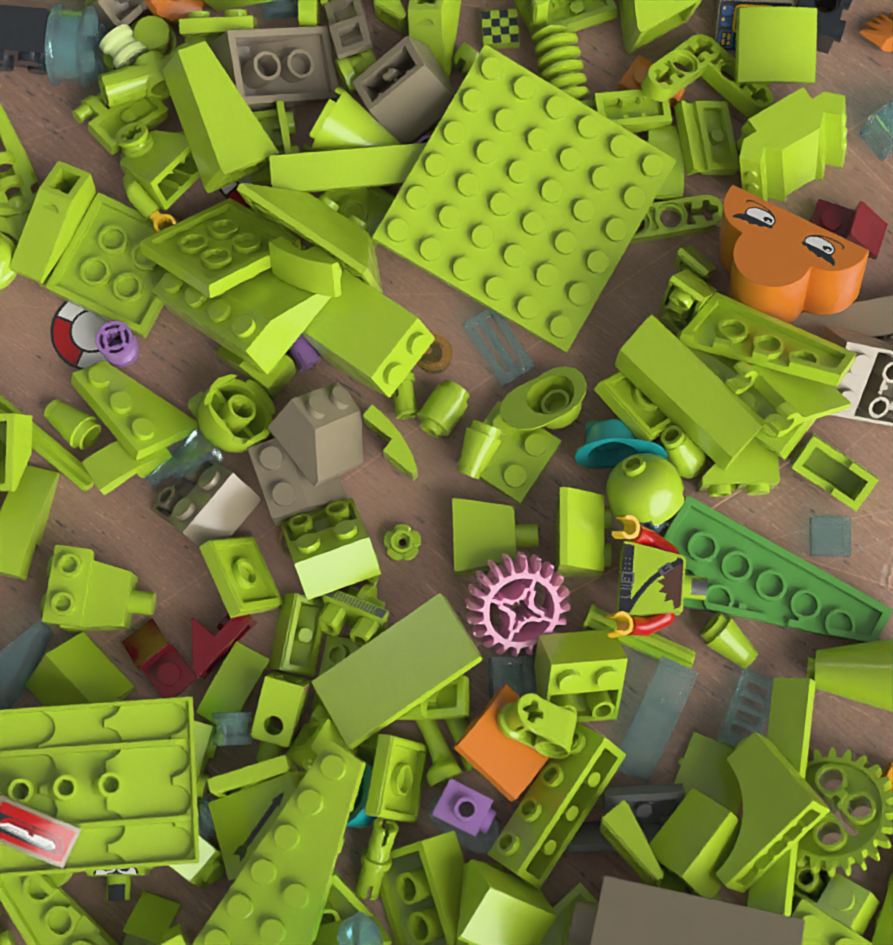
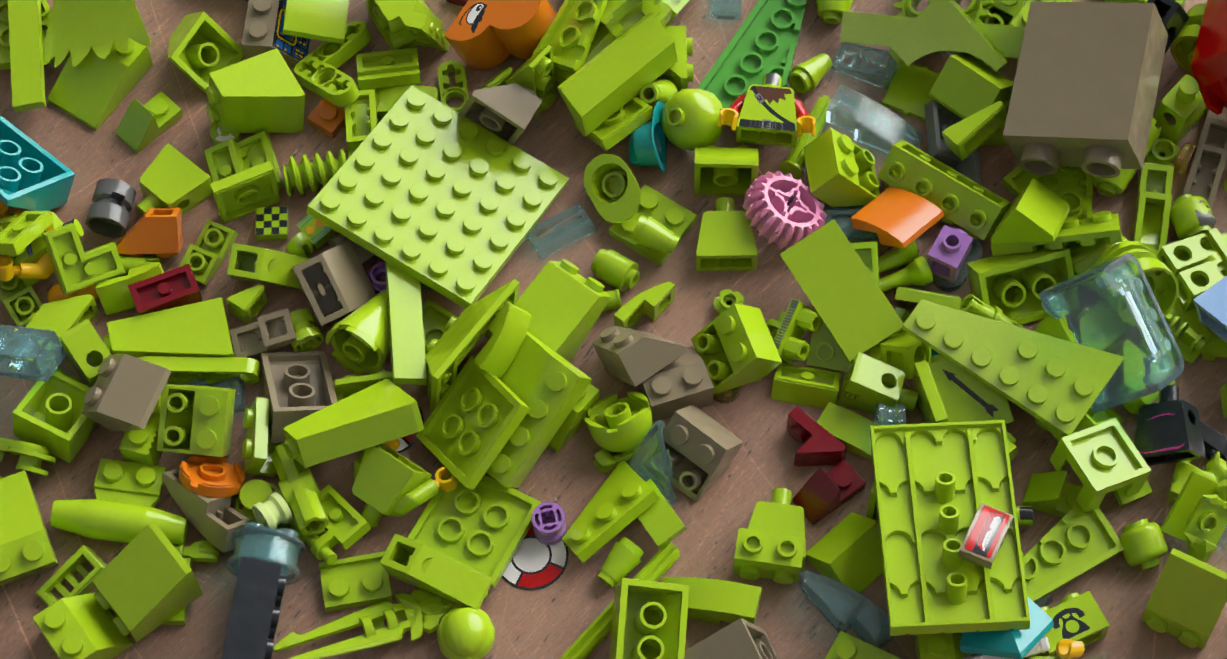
camera: 90 degrees left, 15 degrees down
(59, 138) = (355, 582): none -> lime plate
(134, 139) = (358, 491): lime bush -> none
(241, 575) = (760, 414): lime tile -> none
(539, 725) = (885, 190): lime piece -> none
(638, 265) = (502, 109): none -> dark tan slope

